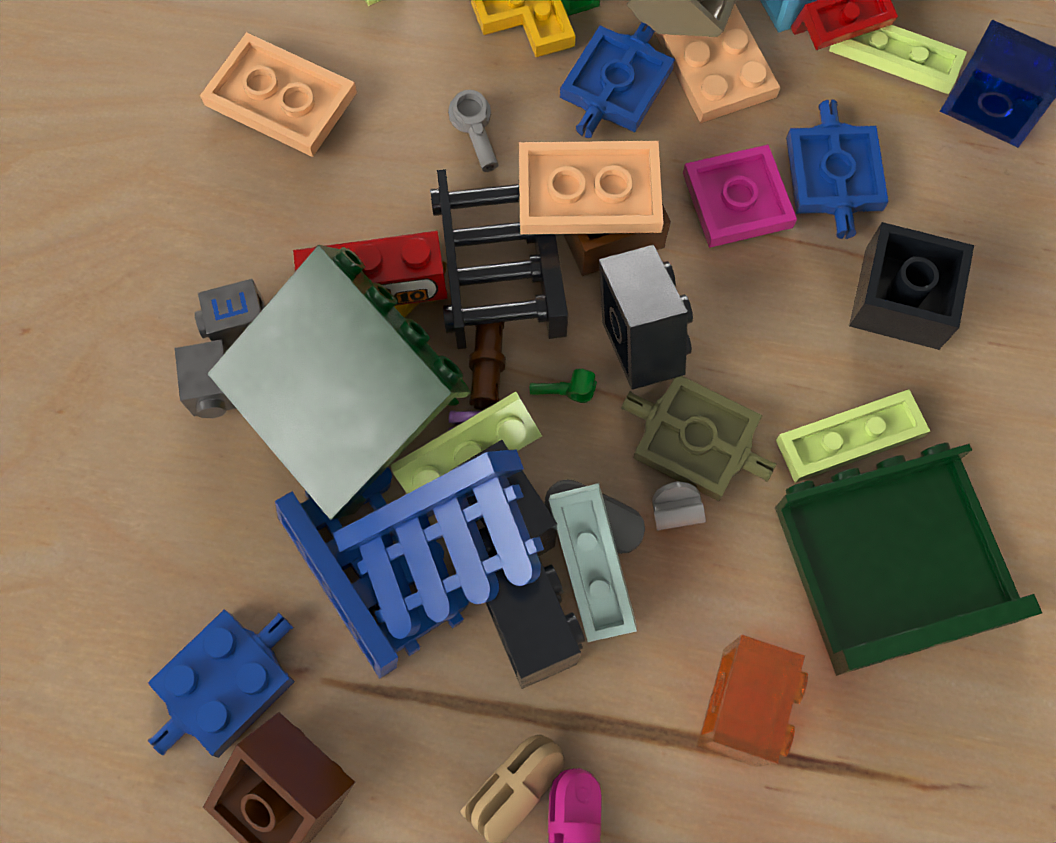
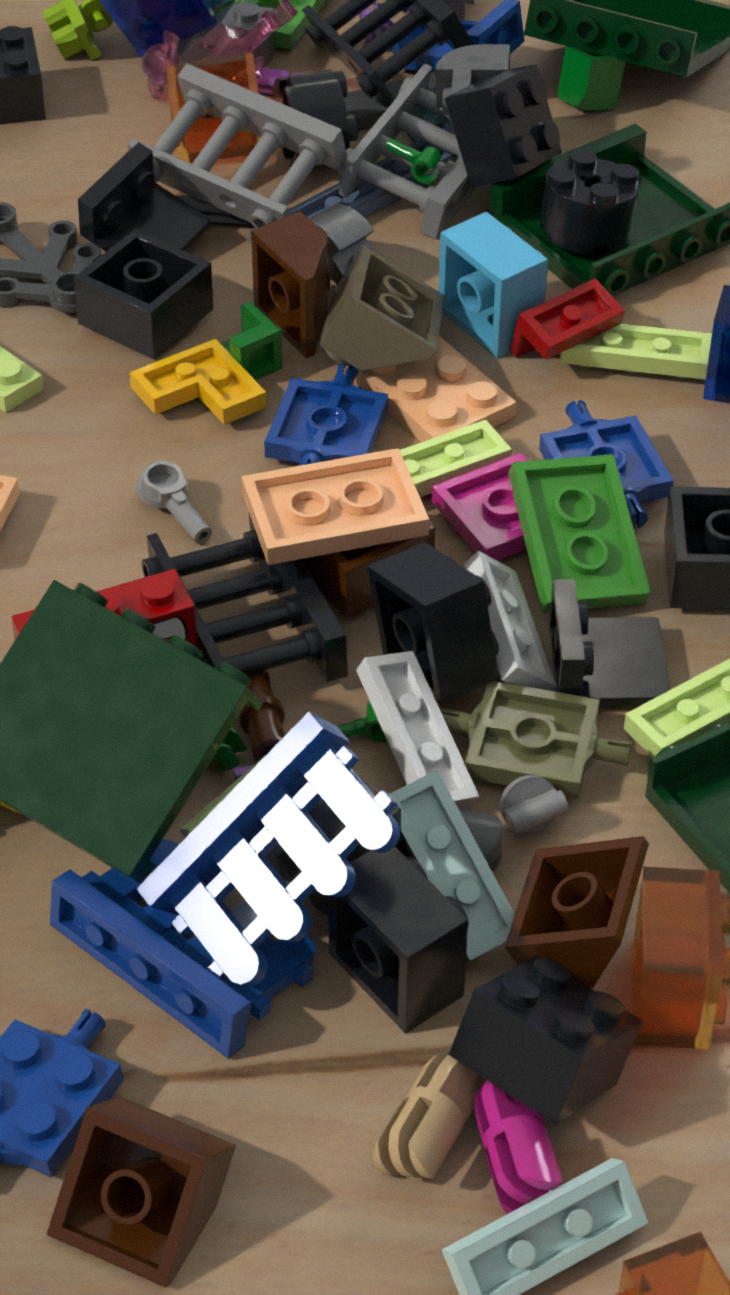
camera: 15 degrees left, 25 degrees down
(603, 415) = (415, 723): none -> white plate
(621, 756) = (545, 1037): none -> black brick
(682, 637) = (577, 905): none -> reddish brown slope
(700, 135) = (453, 455): none -> yellowish green plate
(711, 328) = (520, 653): none -> white plate
(781, 367) = (604, 657): none -> black bracket
(792, 242) = (579, 529): none -> bright green plate

